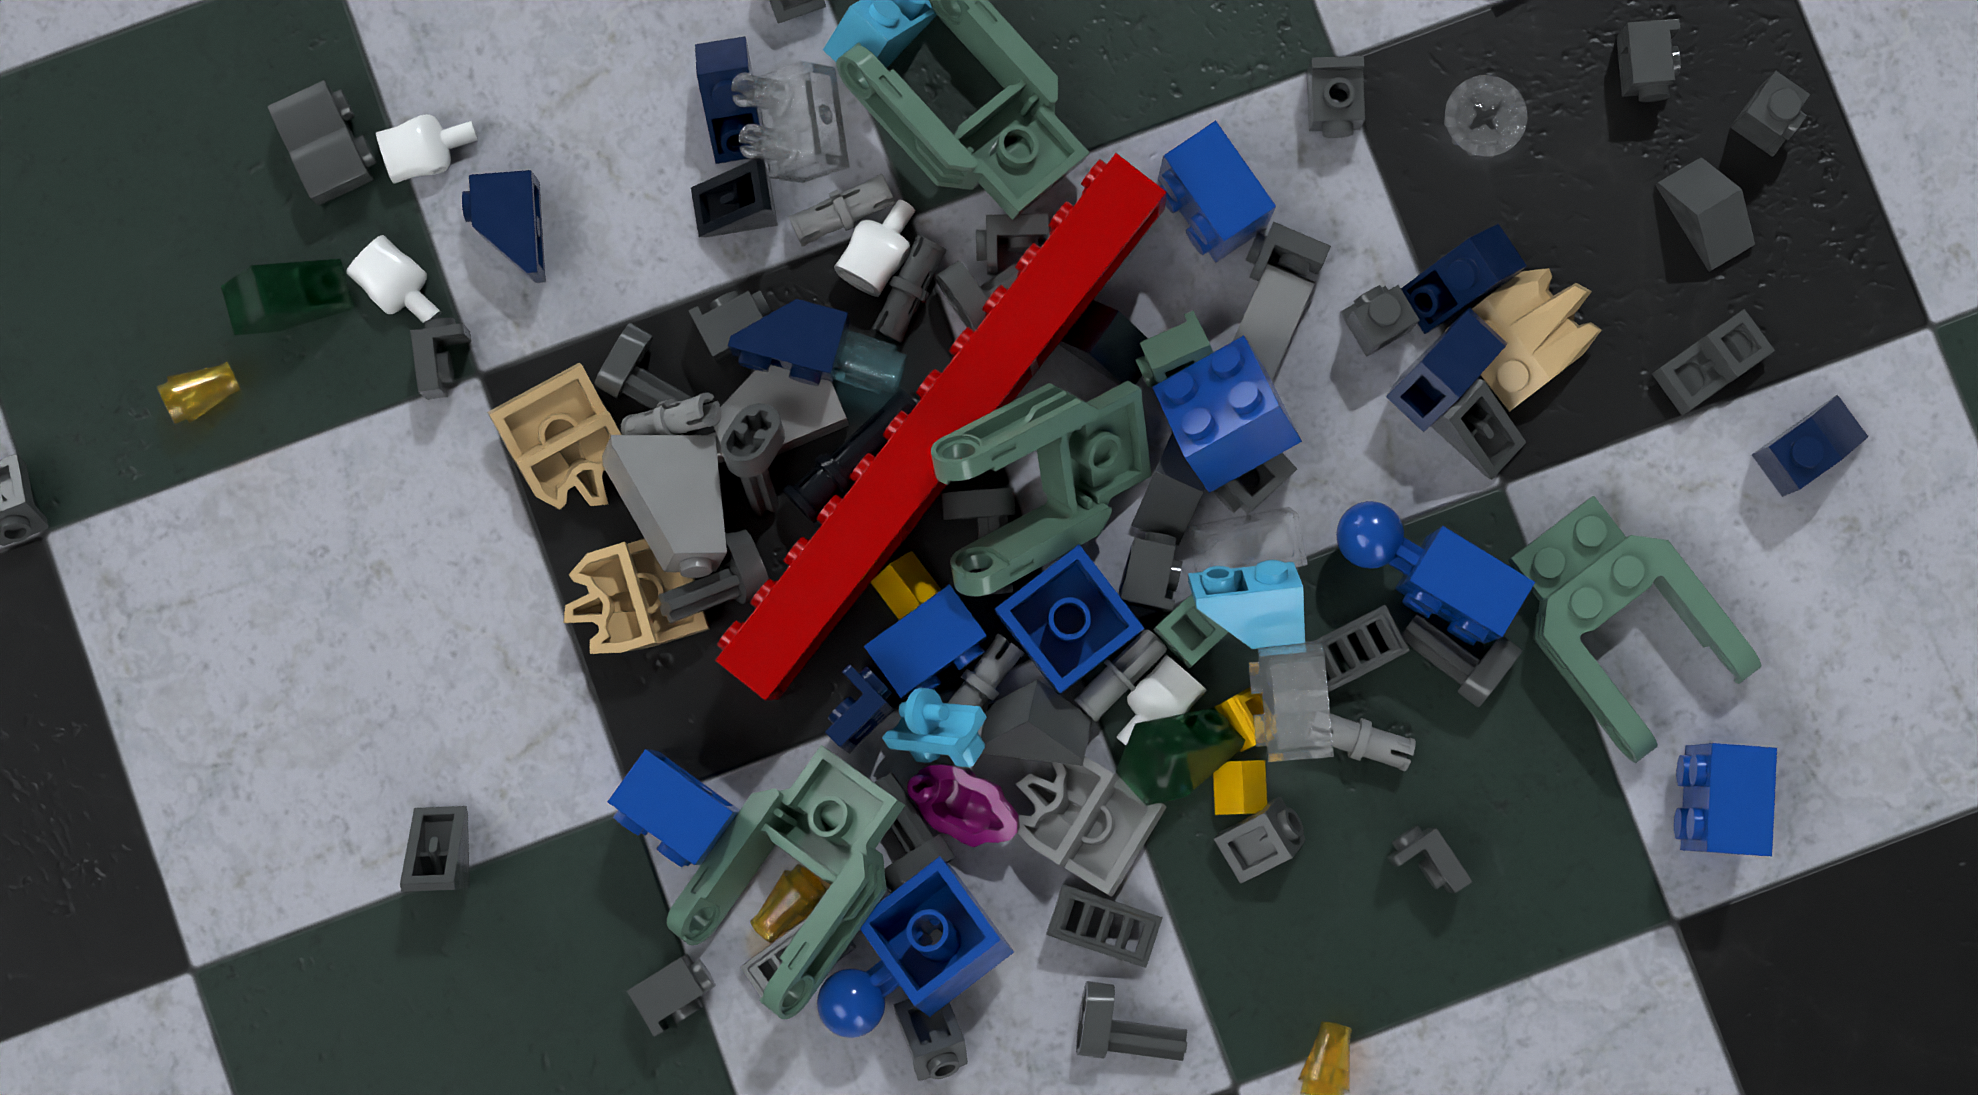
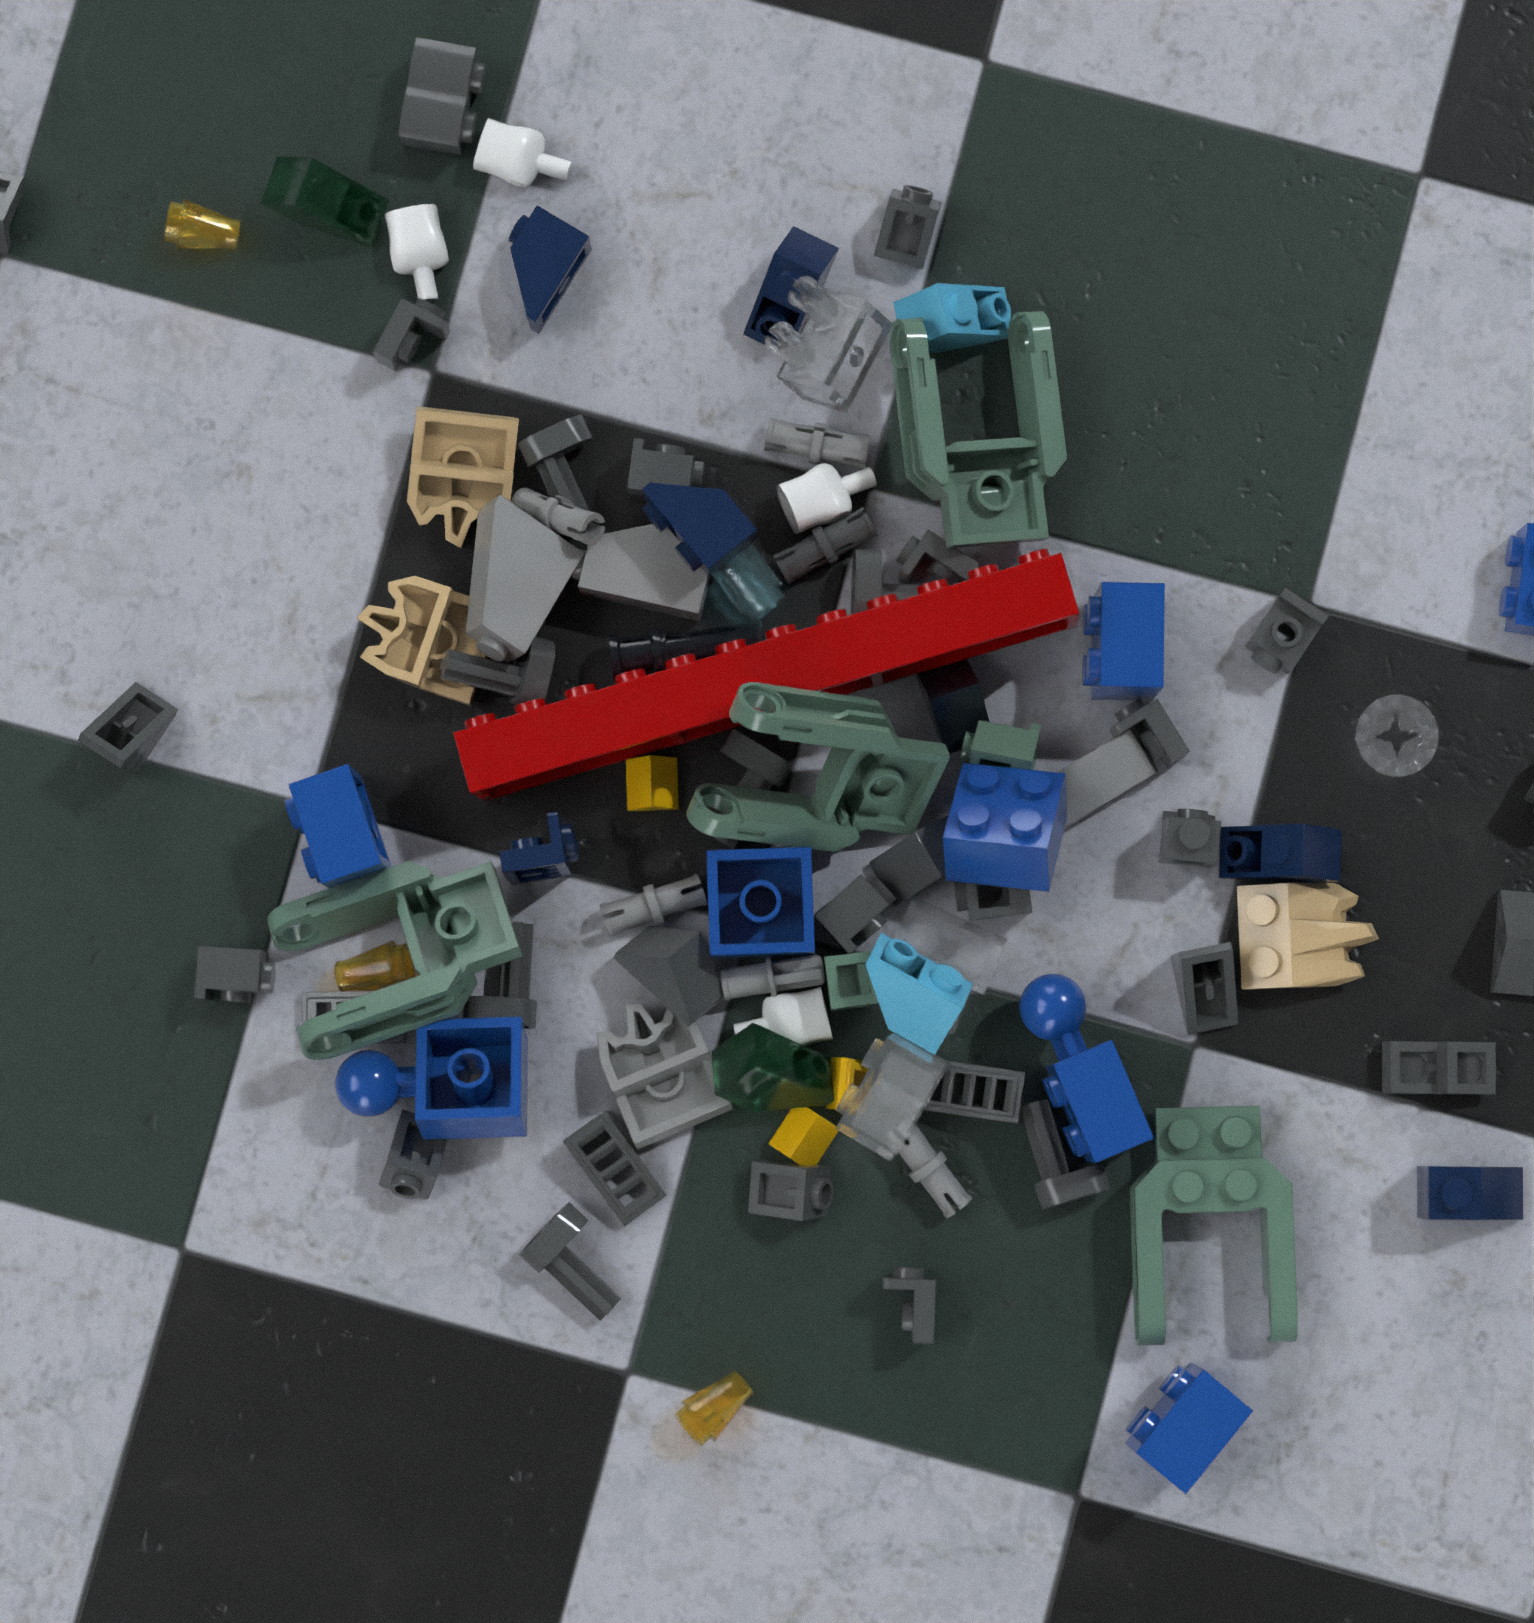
camera: 35 degrees right, 0 degrees up
(735, 201) = (736, 376): black slope -> none
(750, 457) = (599, 590): dark grey piece -> none
(927, 643) = (634, 840): blue brick -> none
(937, 728) = (592, 914): medium azure hips -> none
(963, 805) = (571, 990): magenta arm -> none
(1446, 370) = (1210, 918): dark blue slope -> none

